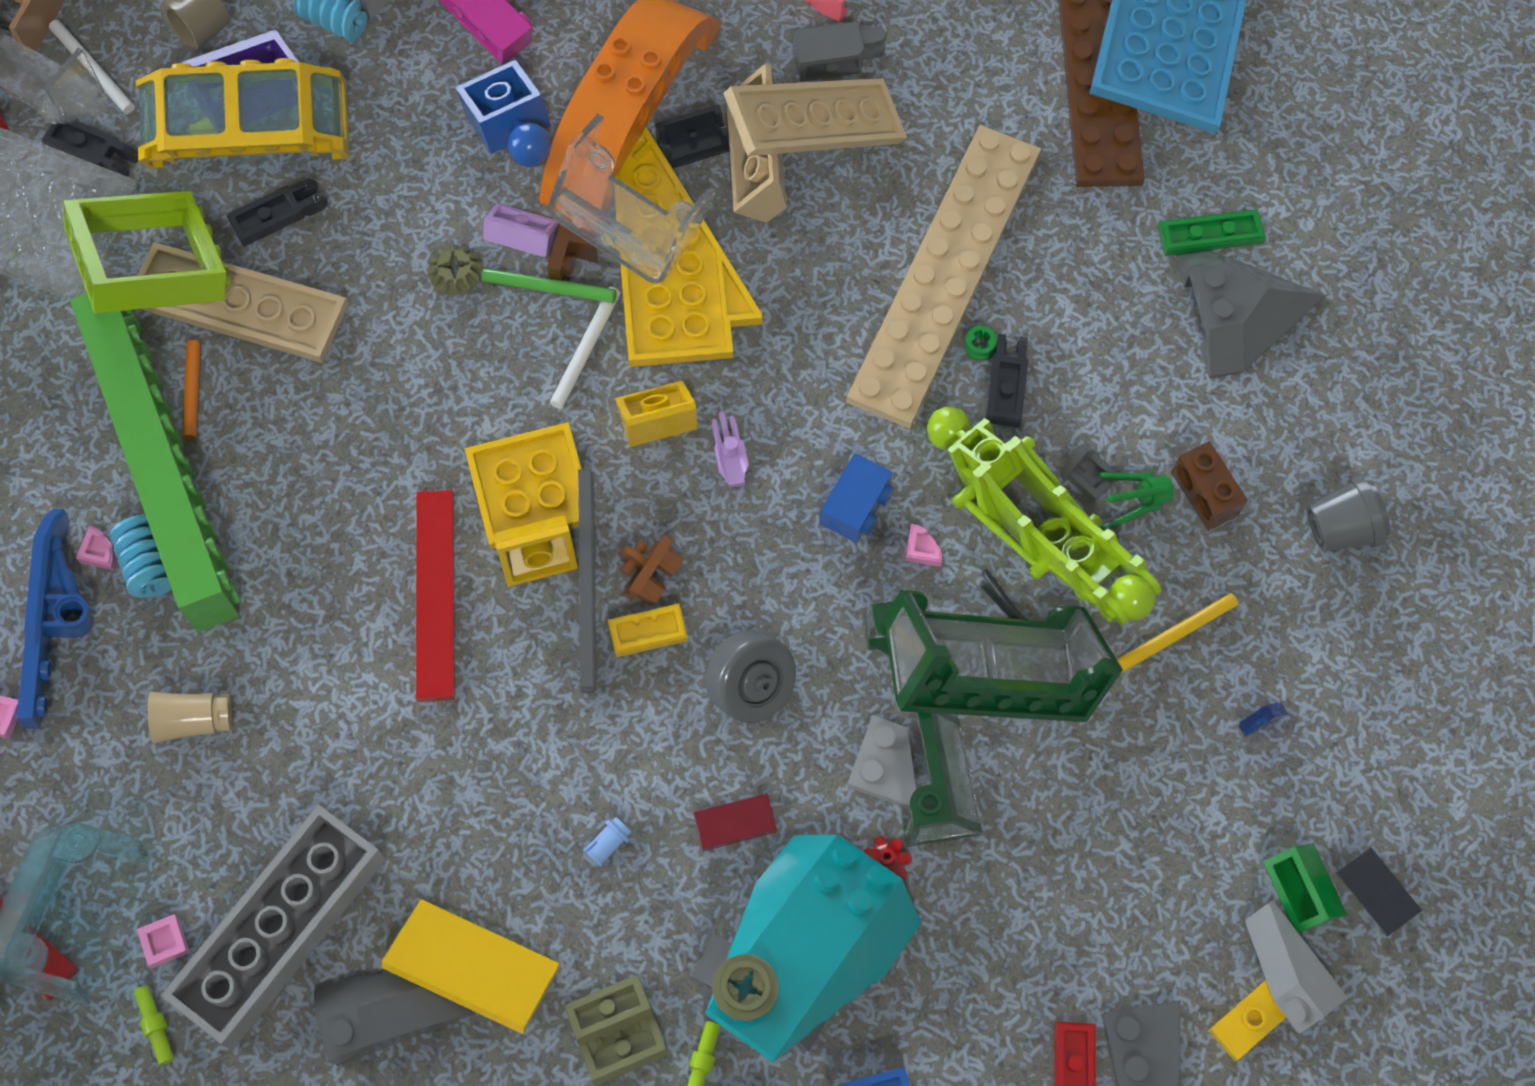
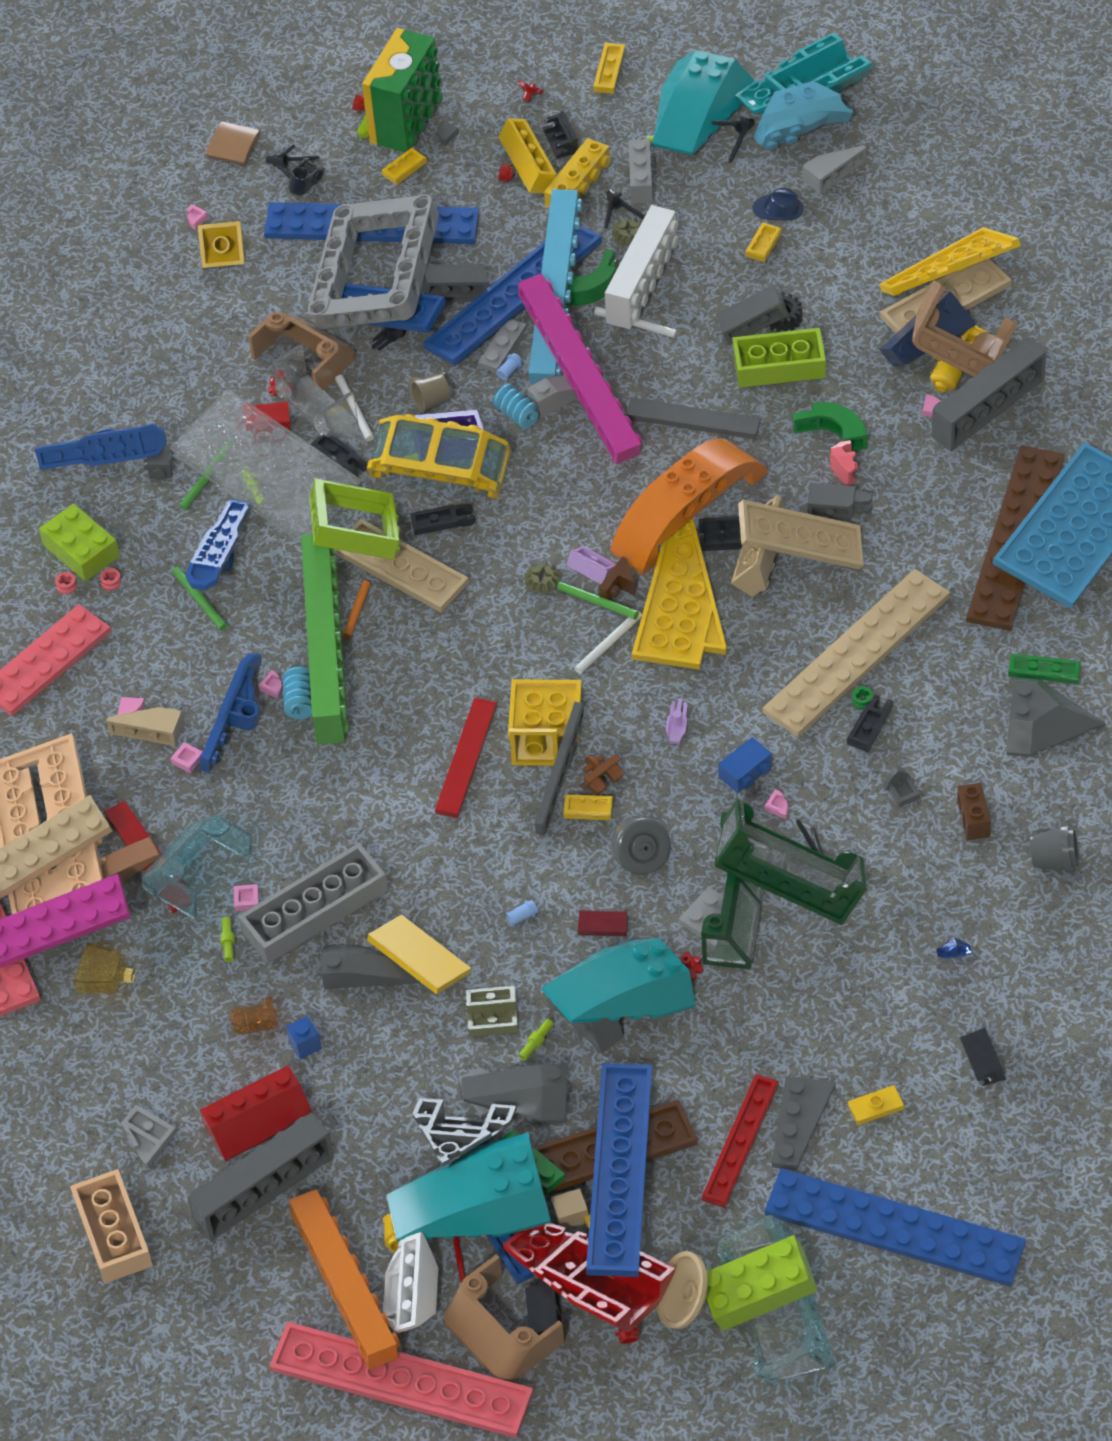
camera: 25 degrees right, 15 degrees down
(187, 715) = (298, 783): tan plant -> none
(508, 113) = (606, 491): blue brick -> none
(617, 216) = (650, 565): clear windscreen -> none
(657, 413) = (638, 690): yellow slope -> none
(737, 970) = (568, 970): olive gear -> none
(1066, 544) = (867, 822): lime piece -> none
(1151, 492) = (936, 805): green plant -> none
(1177, 632) = (918, 891): yellow bar -> none
(1292, 970) = (910, 1085): light grey slope -> none
(1304, 887) = (939, 1044): green brick -> none

